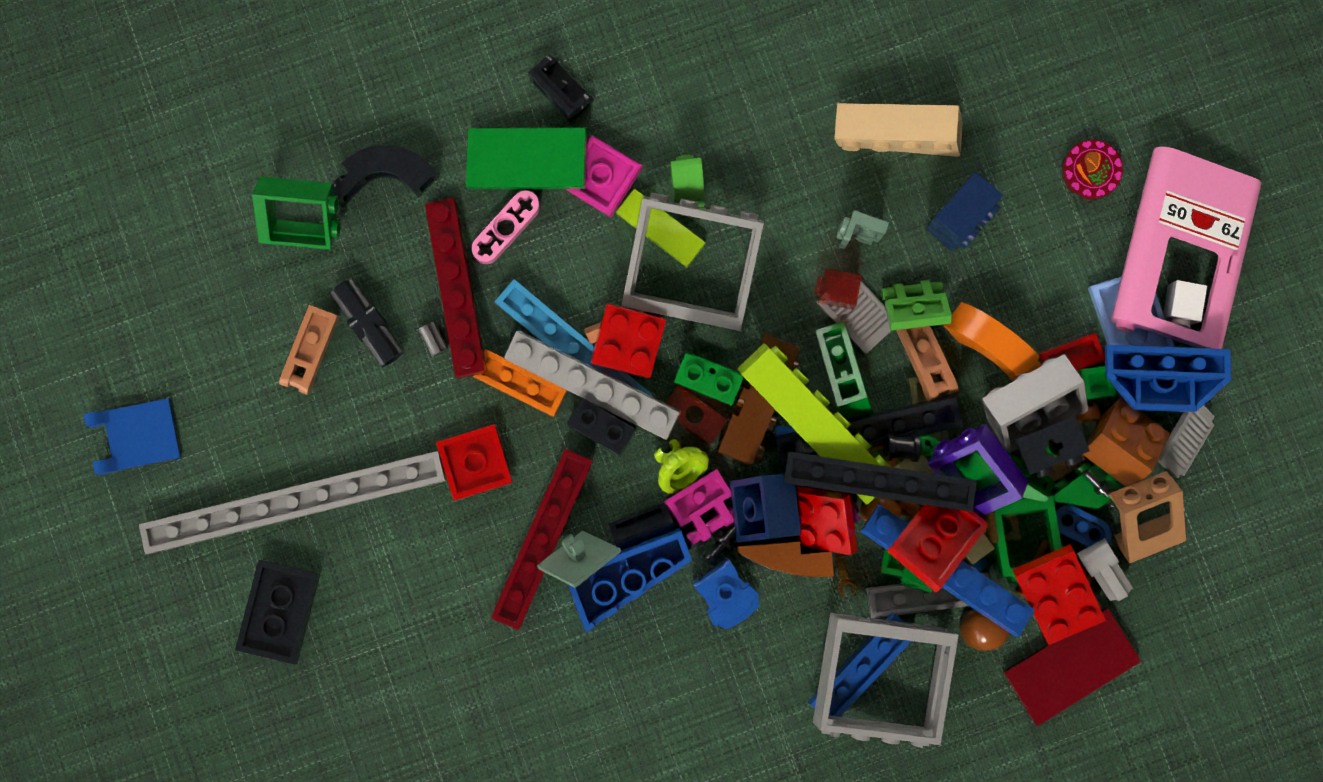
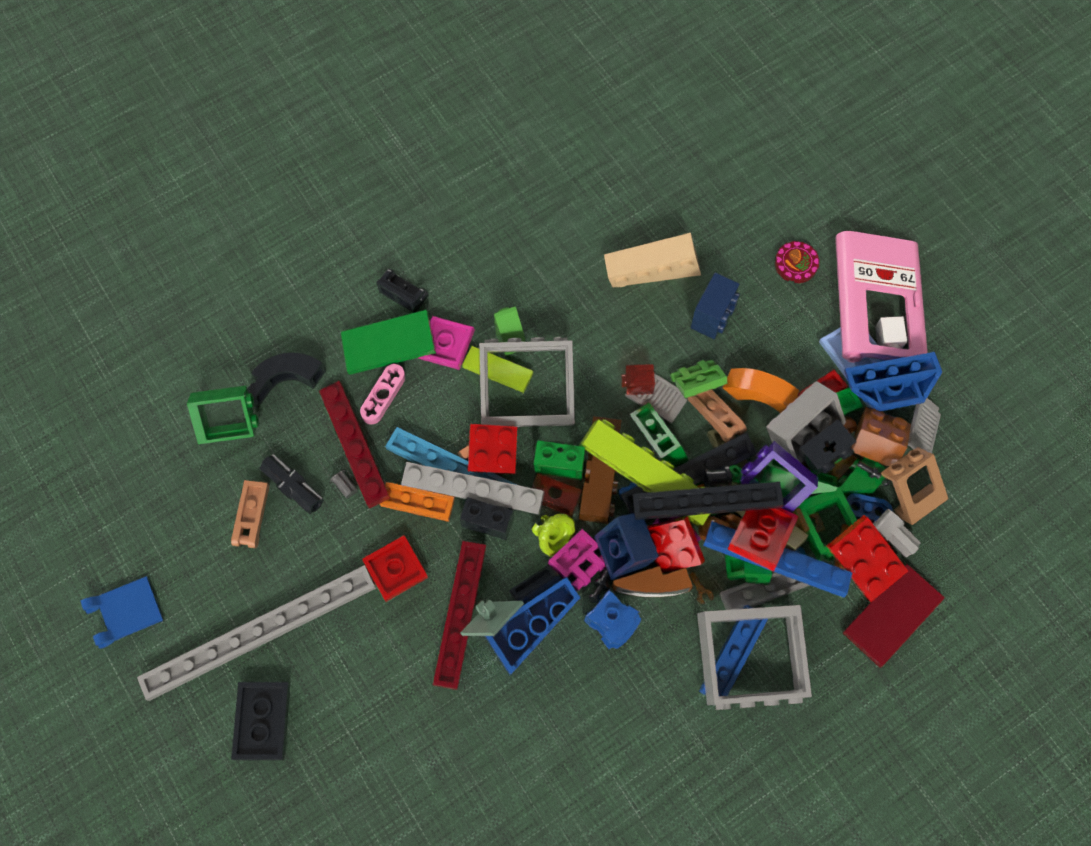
camera: 10 degrees left, 15 degrees down
(863, 226) = (644, 331): sand green bracket -> none
(981, 632) = (817, 603): dark orange hair -> none

